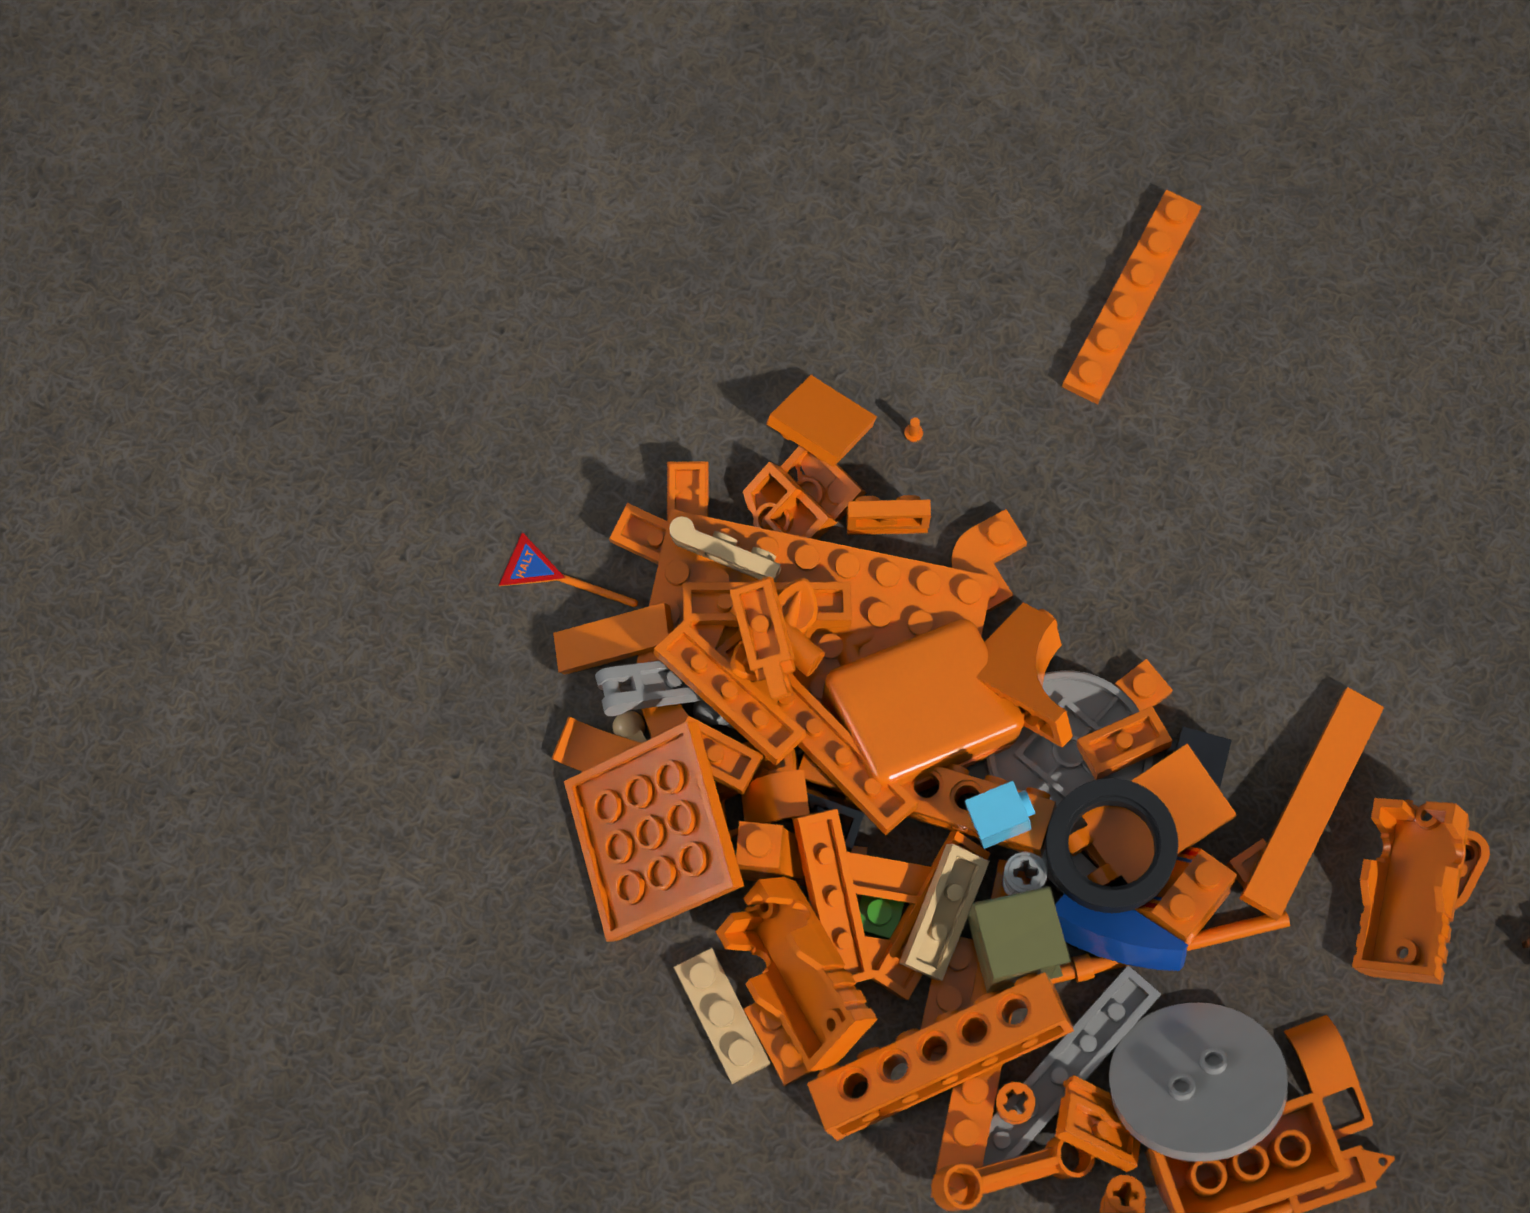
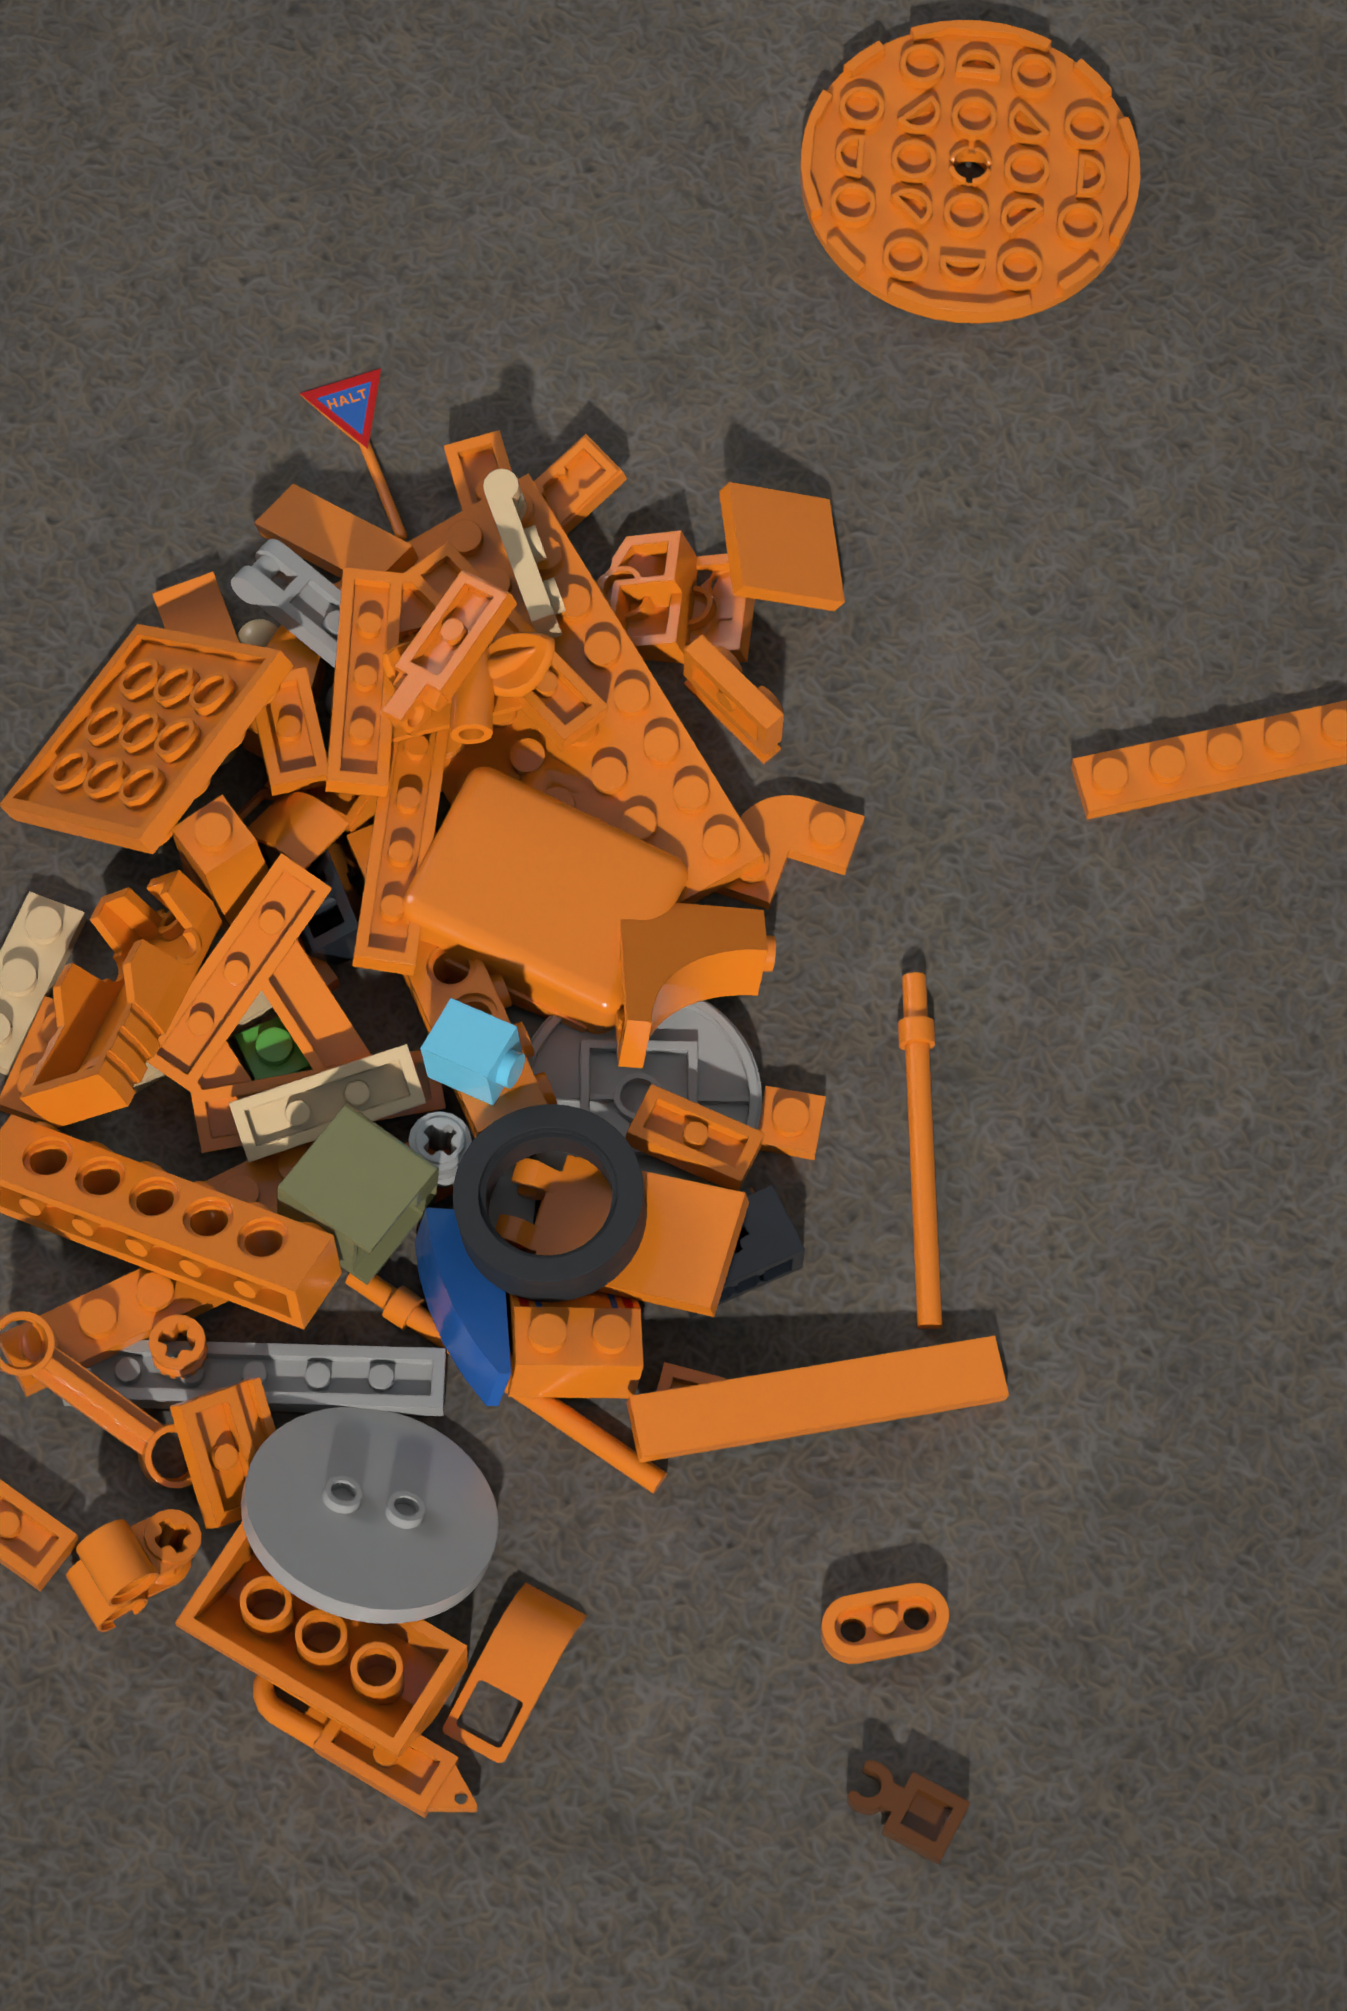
camera: 45 degrees right, 5 degrees down
(688, 202) = (986, 250): none -> orange plate
(913, 431) = (867, 655): orange piece -> none
(1149, 585) = (917, 1037): none -> orange bar
(1411, 890) = (807, 1582): orange piece -> none

